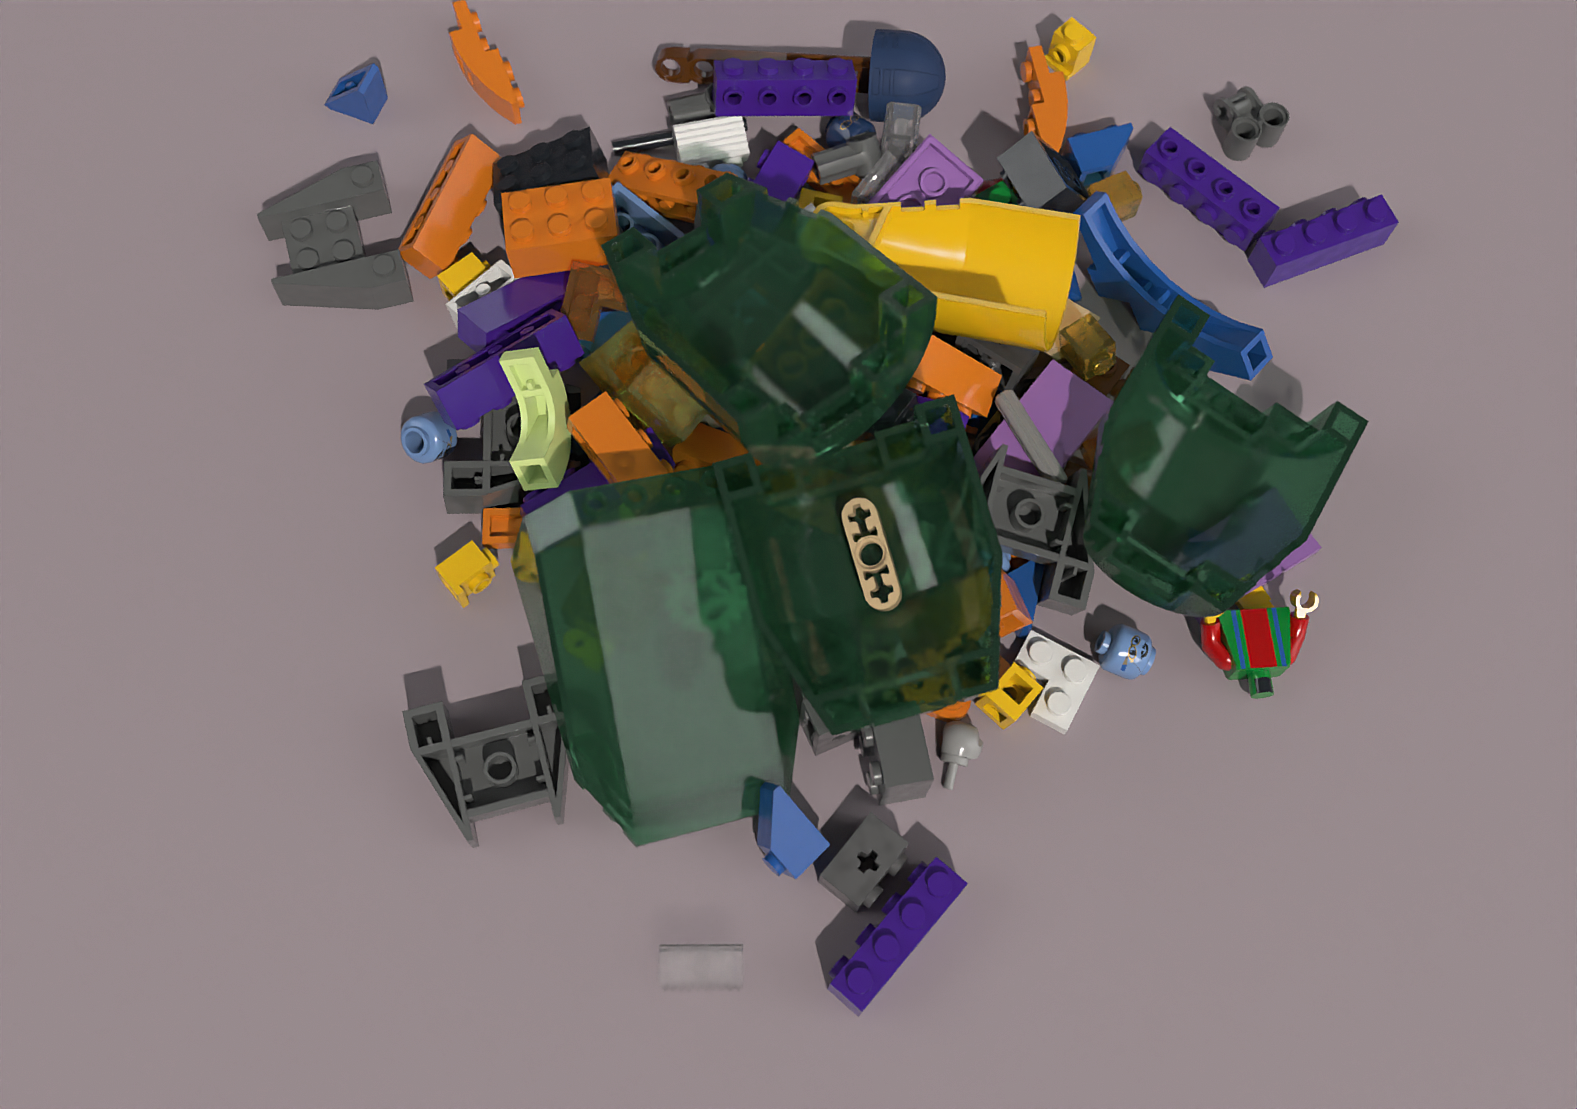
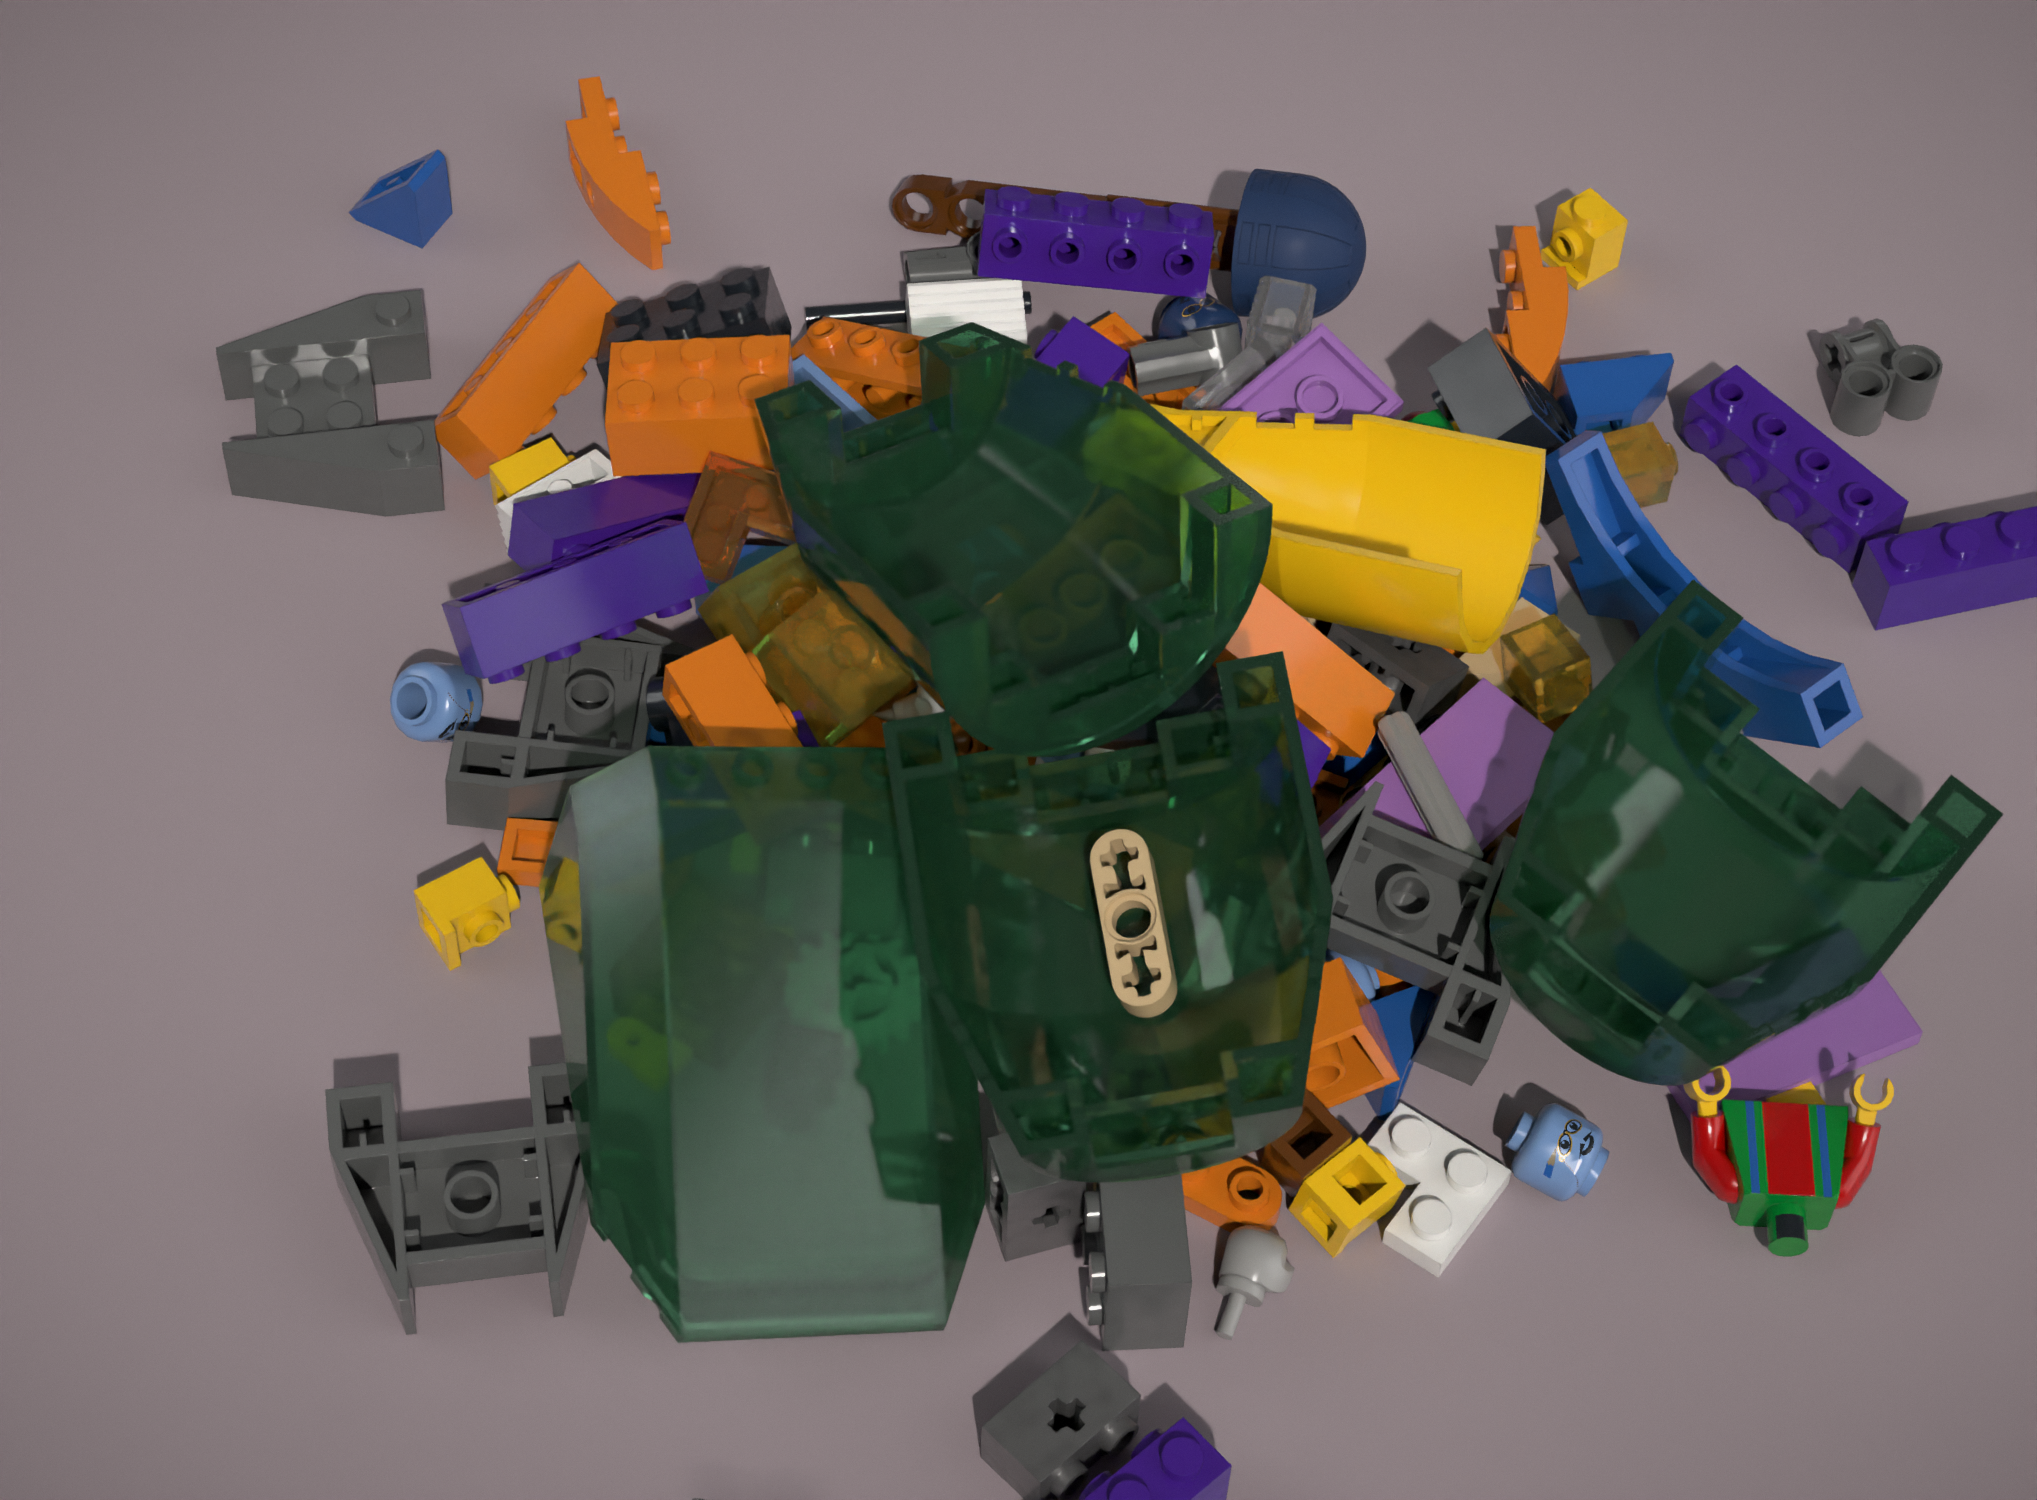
camera: 10 degrees right, 15 degrees down
(544, 412) = (627, 664): yellowish green arch -> none
(786, 833) = (935, 1358): blue slope -> none

